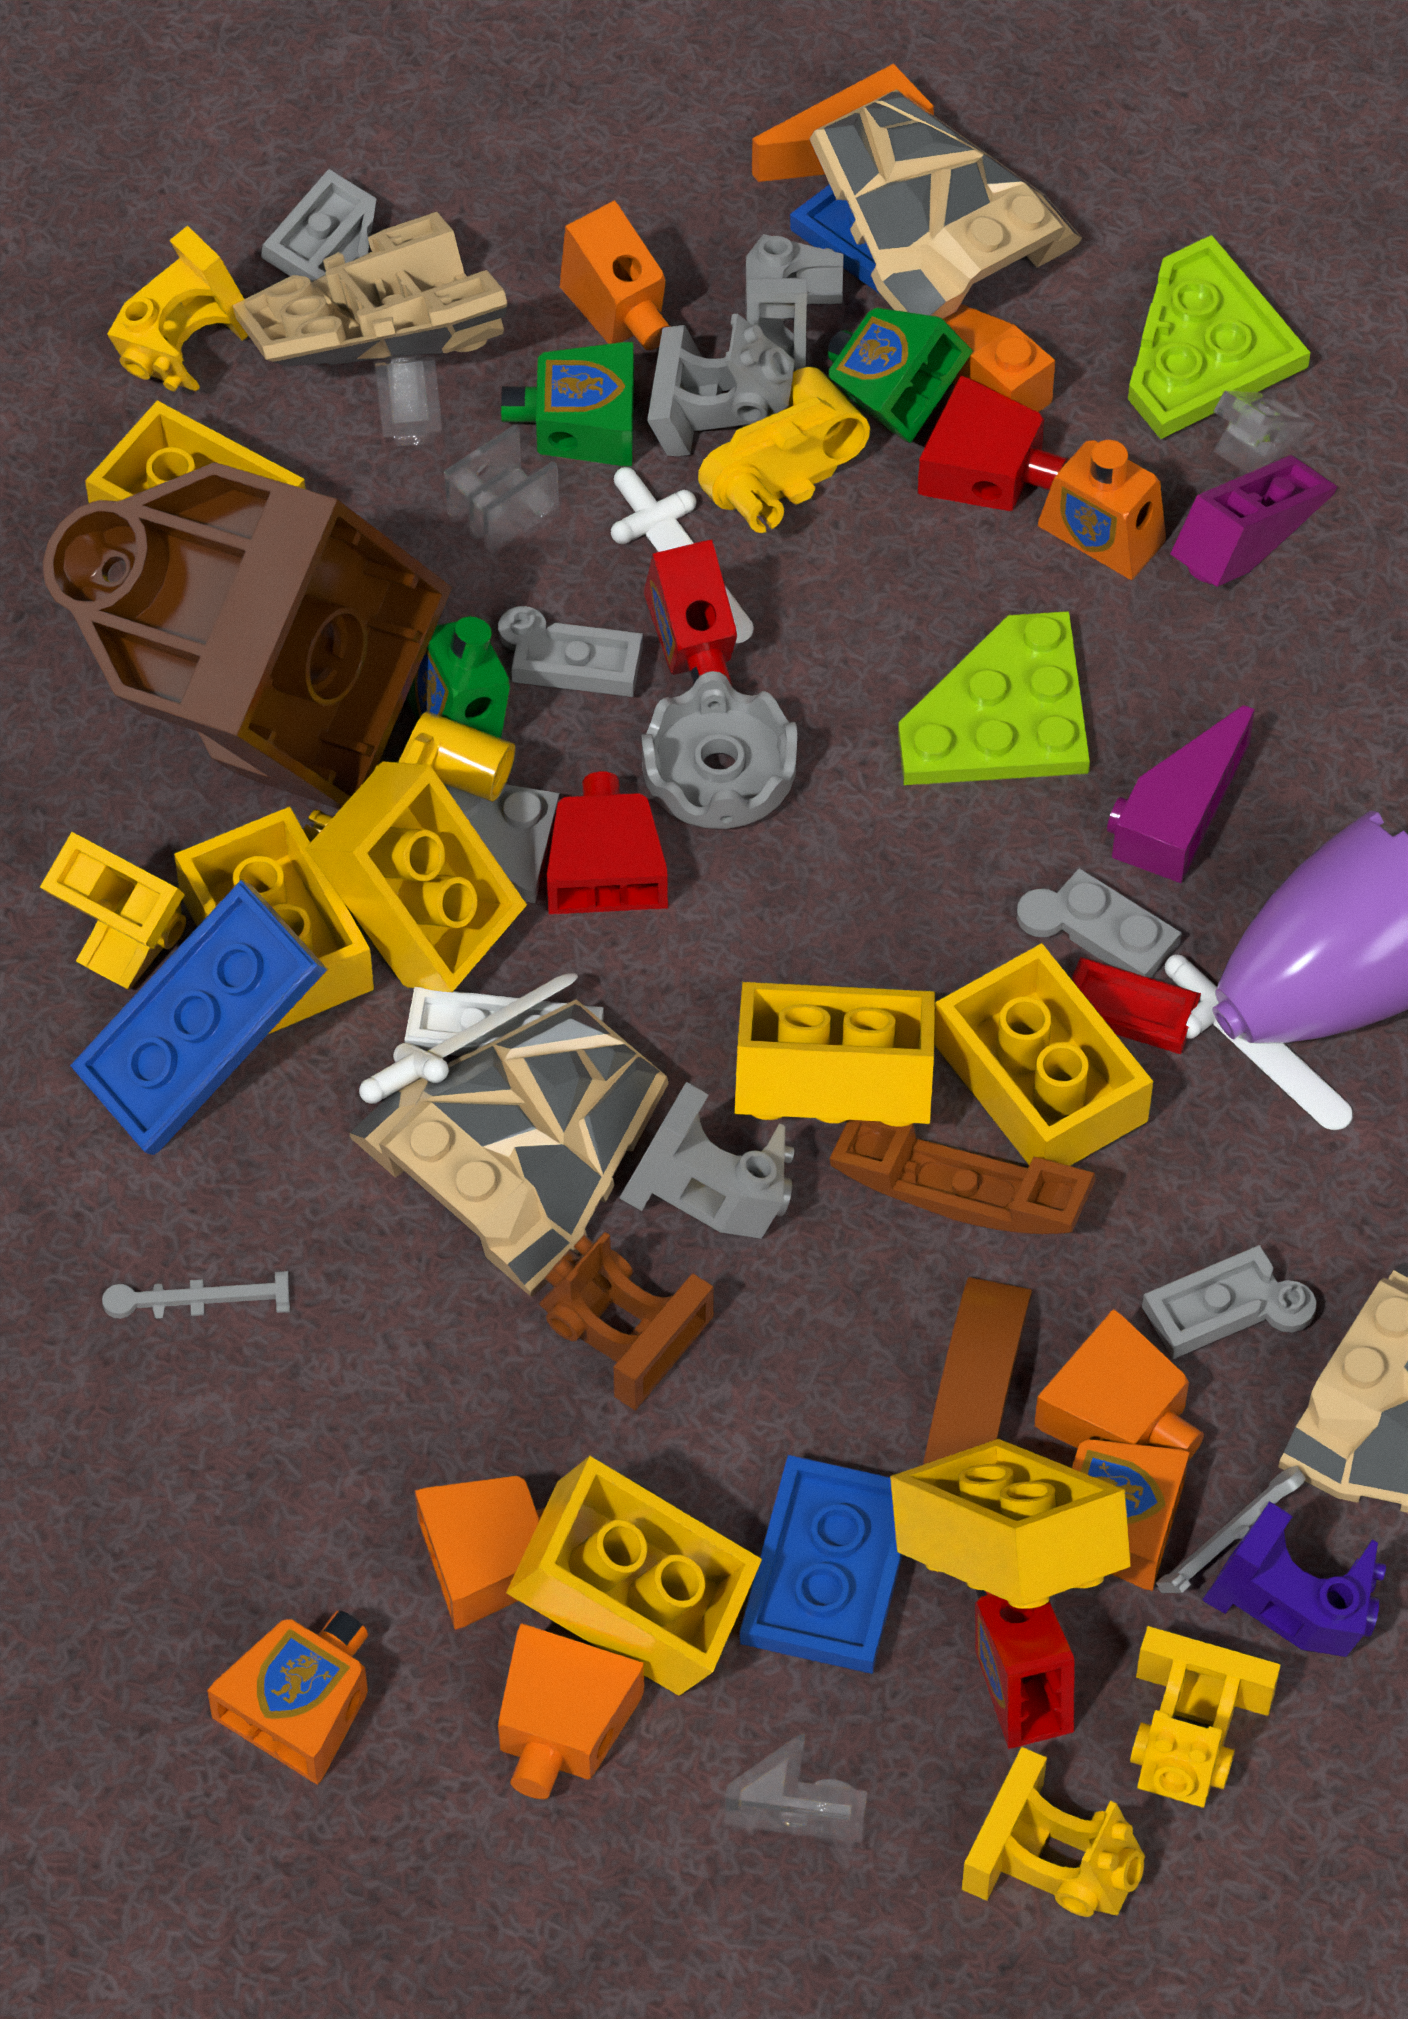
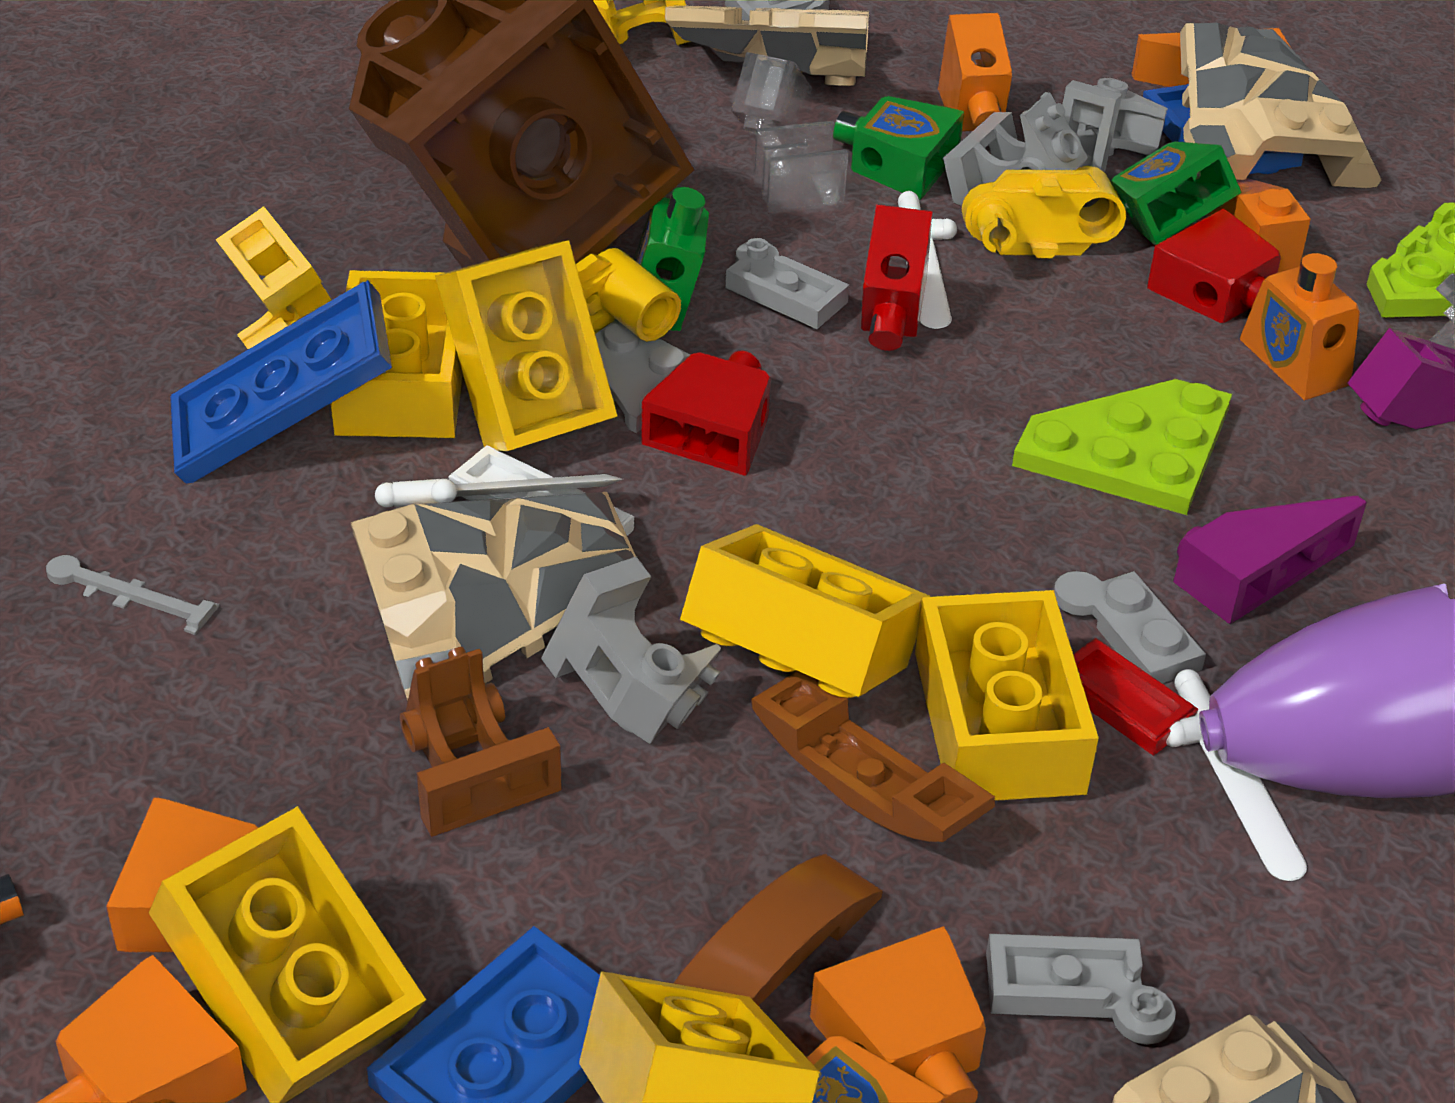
camera: 25 degrees right, 15 degrees down
(712, 721) = (872, 358): light grey plate -> none

